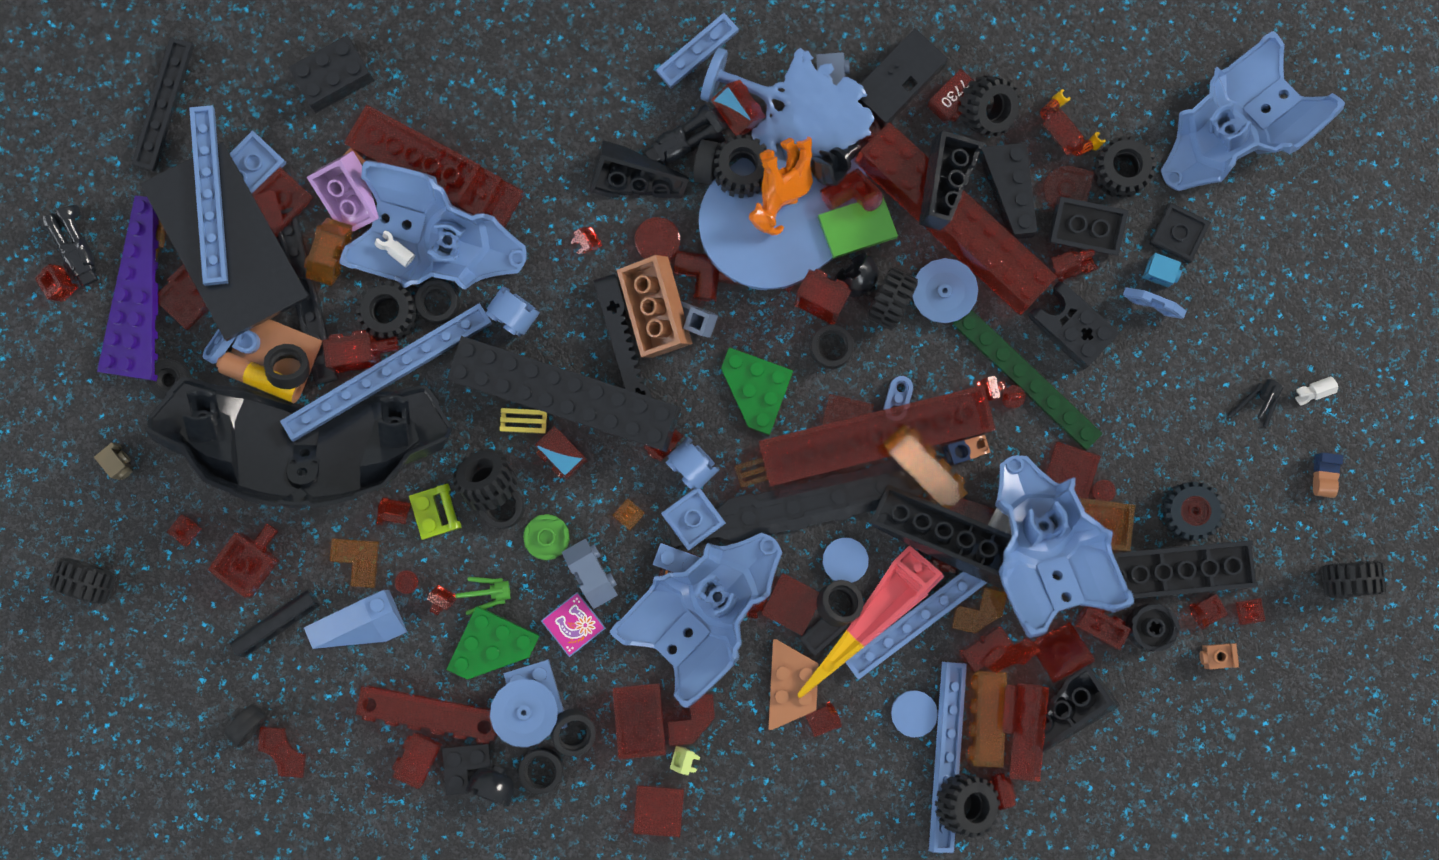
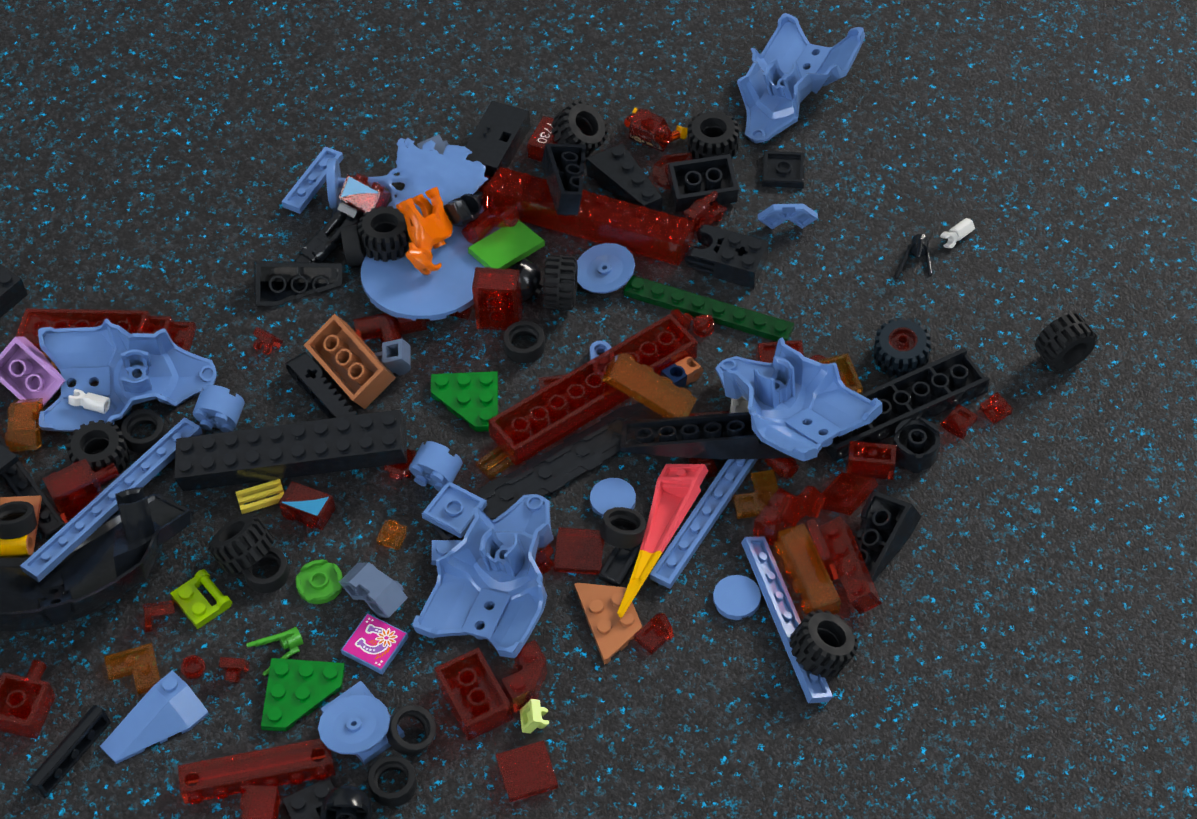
camera: 25 degrees left, 30 degrees down
(657, 237) = (327, 309): clear red tile -> none
(1005, 789) = (859, 626): clear red brick -> none
(1162, 270) = (782, 192): dark azure brick -> none
(1209, 653) = (988, 448): nougat brick -> none
(1326, 474) = (1000, 284): leg -> none

